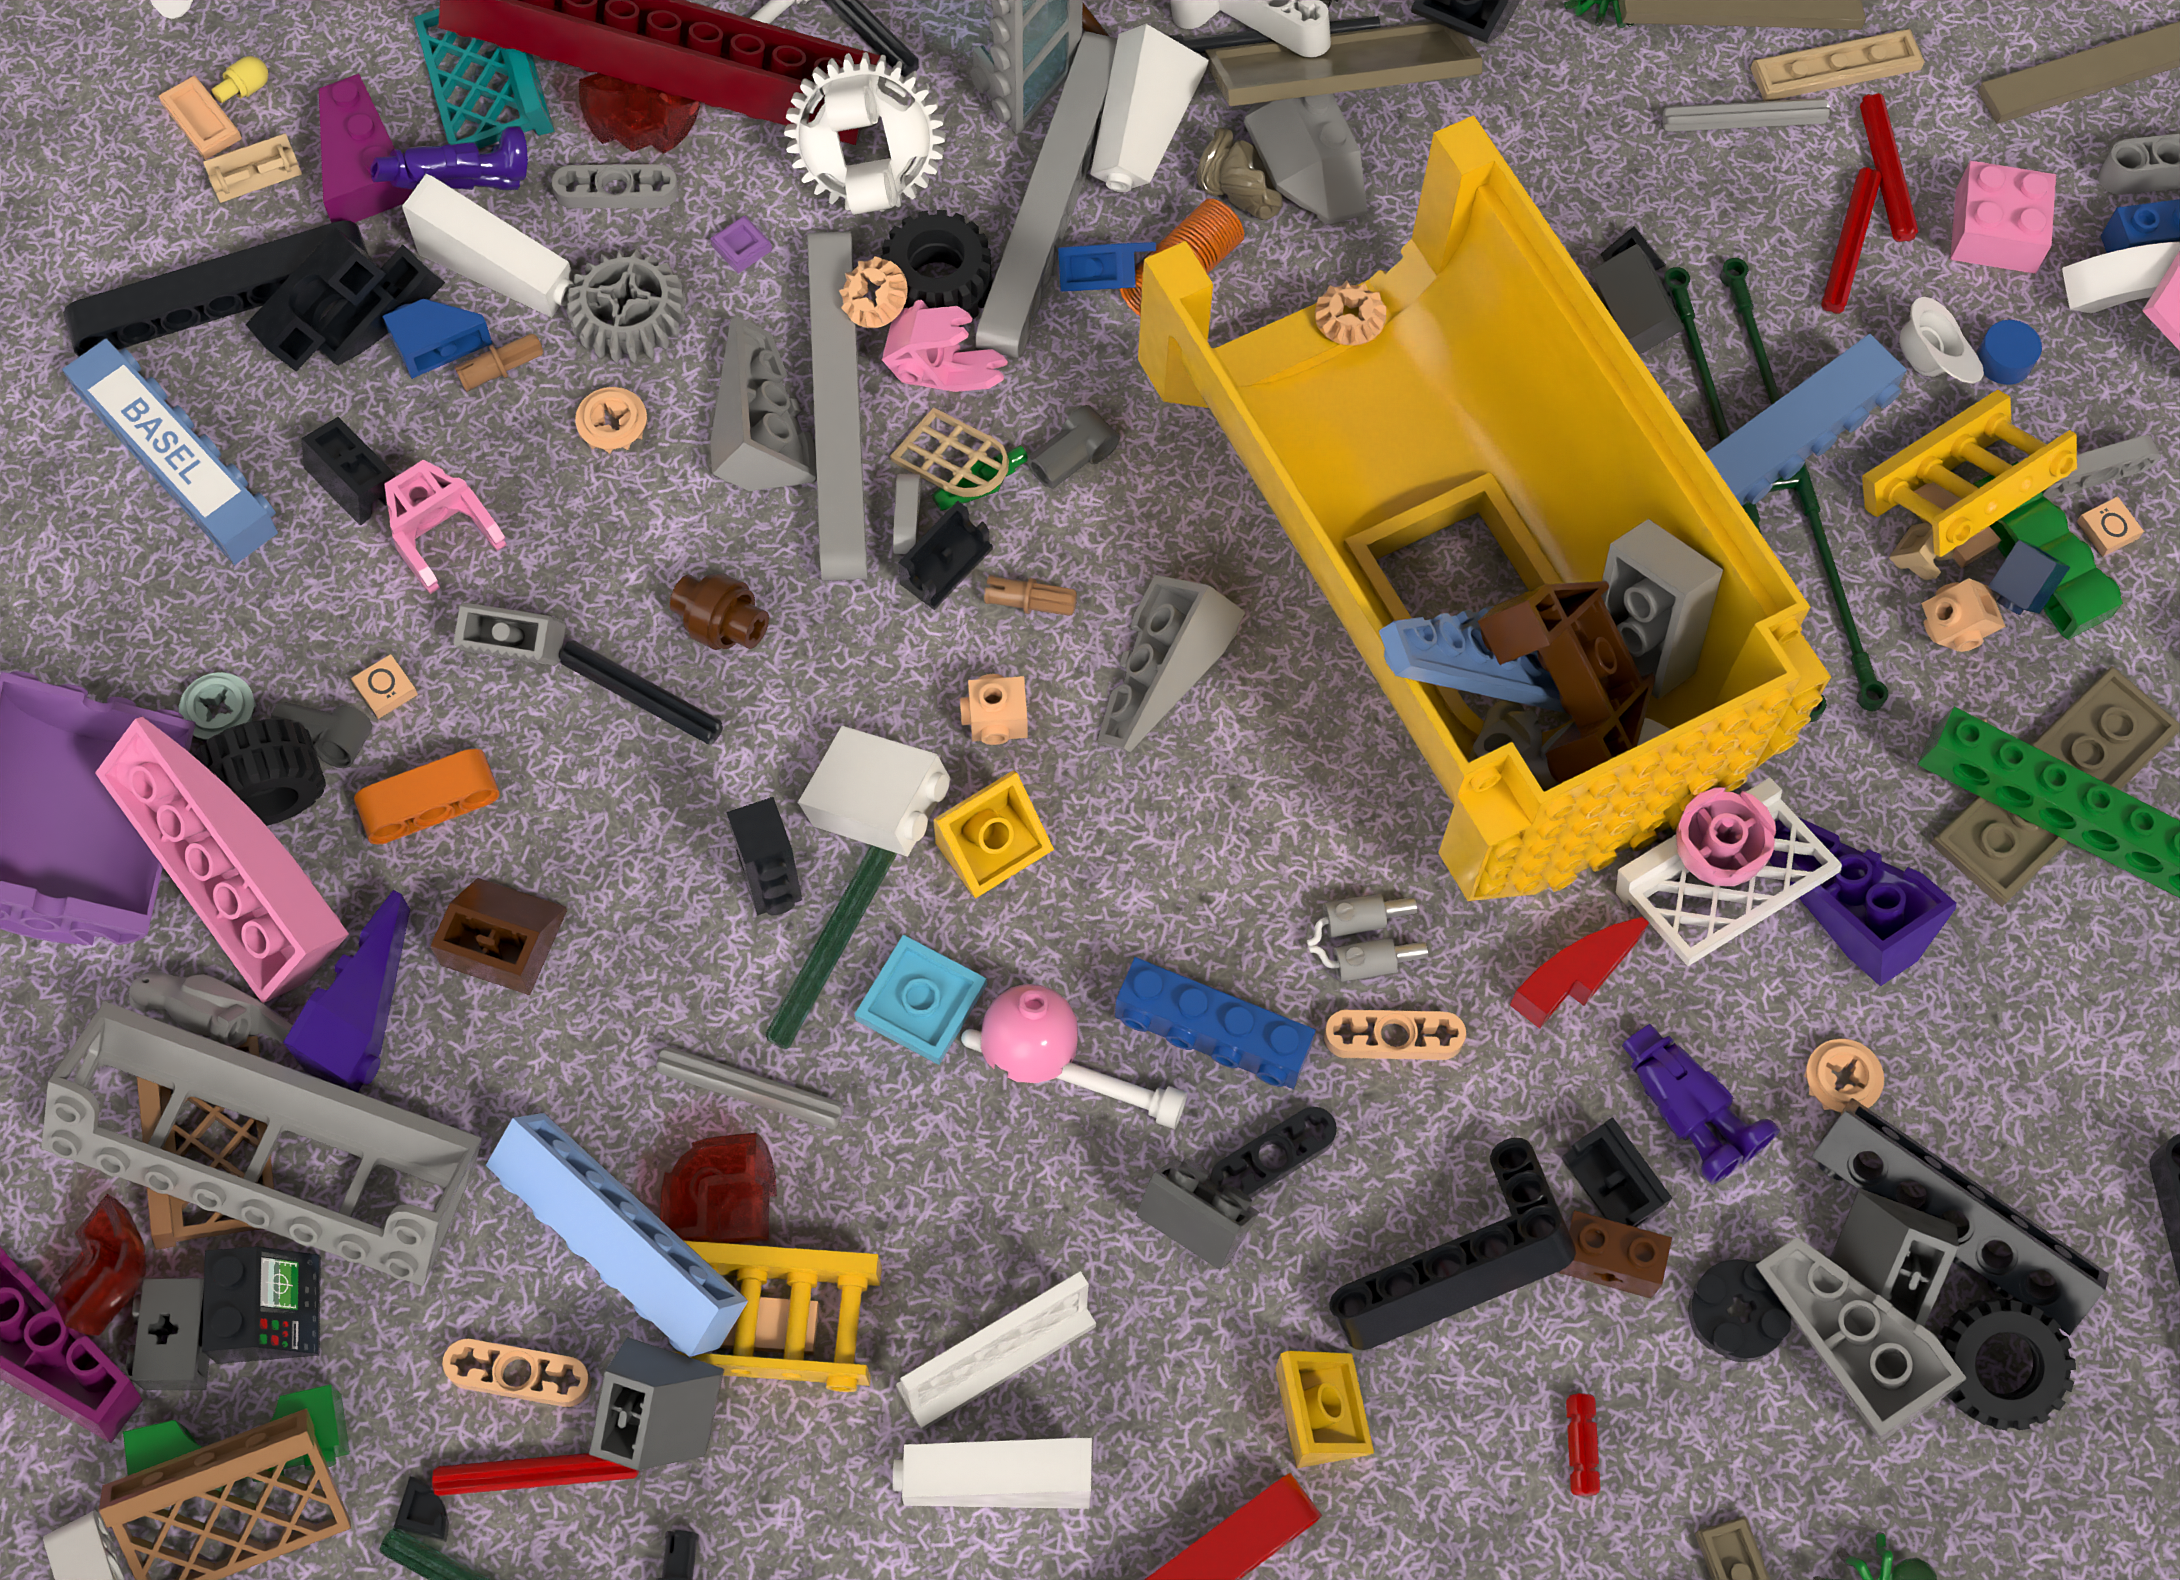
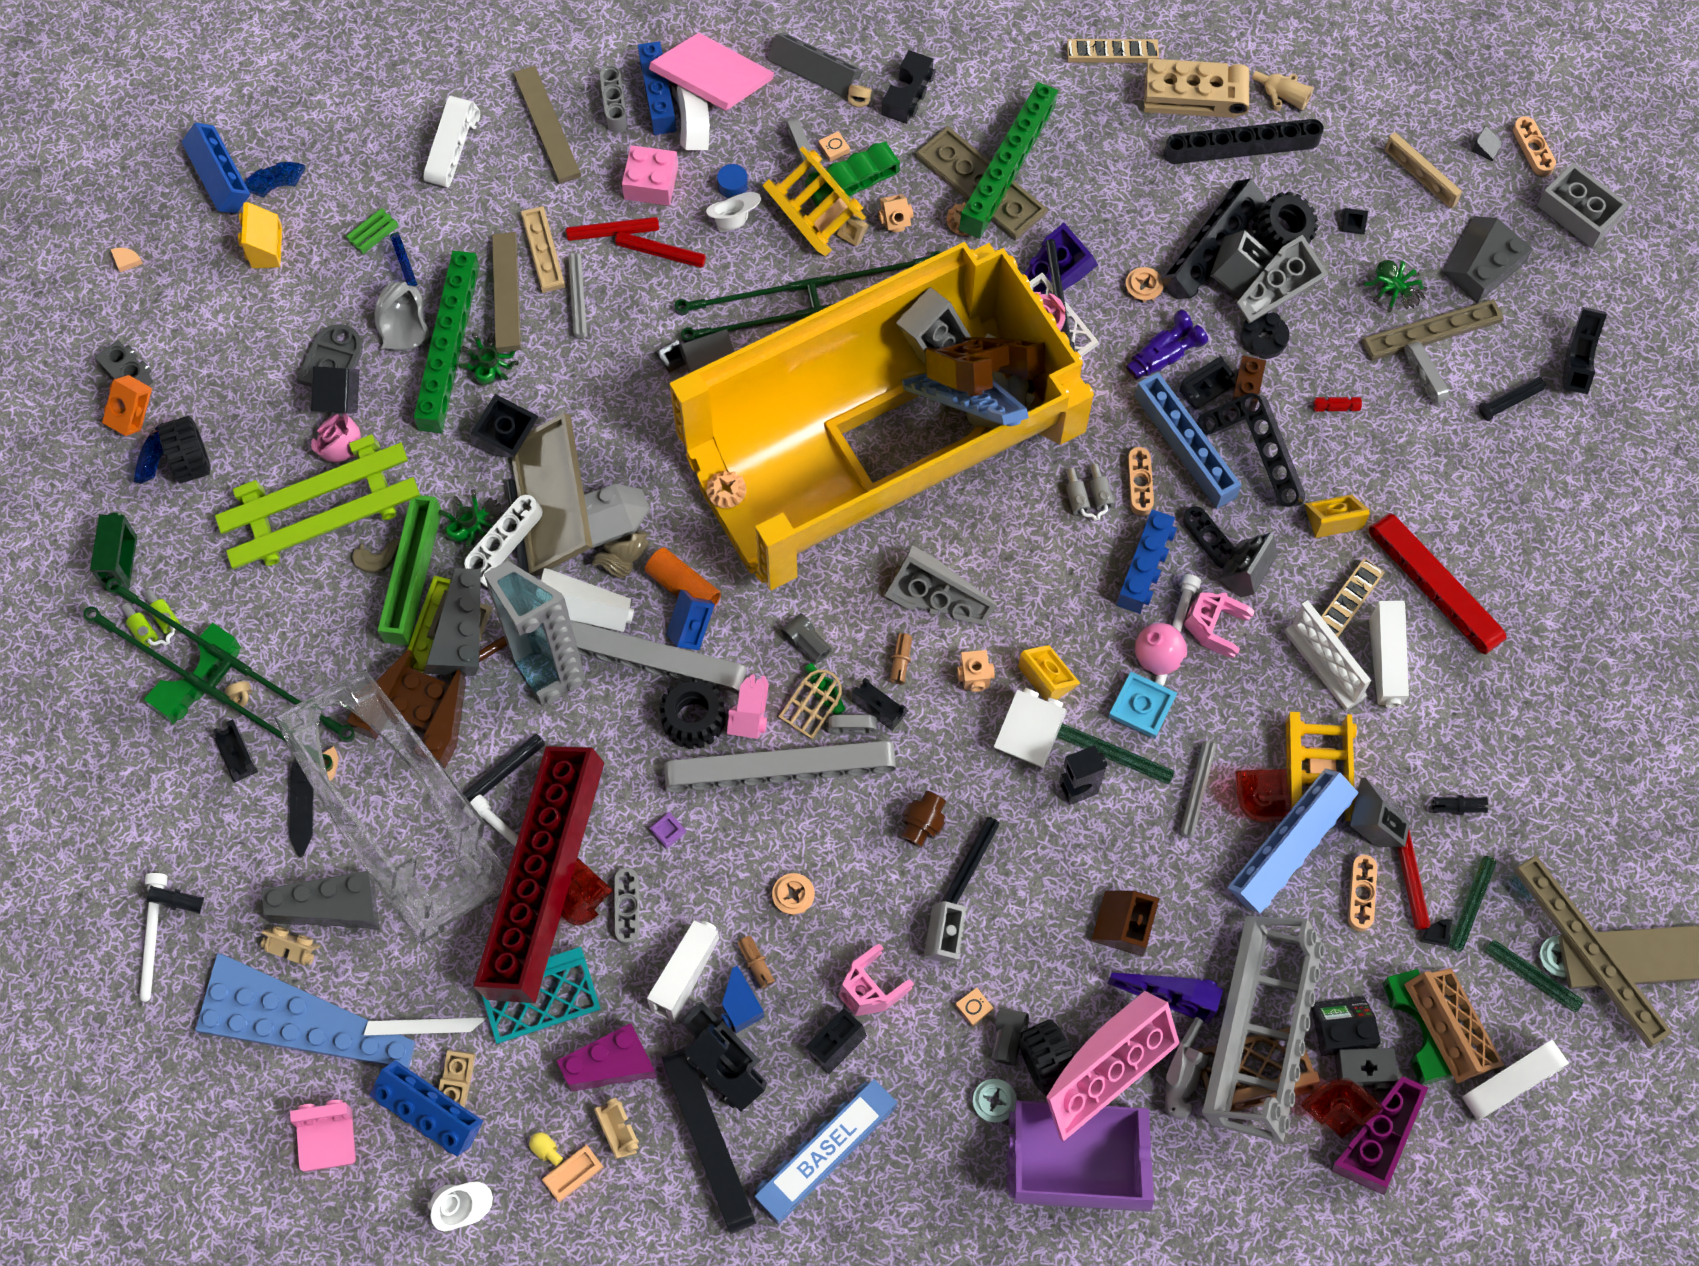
camera: 90 degrees left, 0 degrees up
(426, 796) = (1045, 972): orange beam -> none
(458, 164) = (621, 971): dark purple piece -> none
(615, 289) = (706, 888): light grey gear -> none
(755, 421) = (801, 810): light grey wedge -> none
(857, 102) = (613, 738): white piece -> none
(890, 296) = (707, 735): light nougat gear -> none
(1072, 1117) = (1204, 615): none -> bright pink piece
(1125, 1410) = (1352, 596): none -> tile
(1477, 1119) = (1187, 440): none -> medium blue brick
(1576, 970) = (1105, 401): red slope -> none
(1672, 899) = (1057, 283): none -> black bar
(1807, 419) = (782, 271): medium blue brick -> none
(2027, 578) = (878, 178): dark blue brick -> none
(2044, 1534) = (1354, 221): none -> black slope

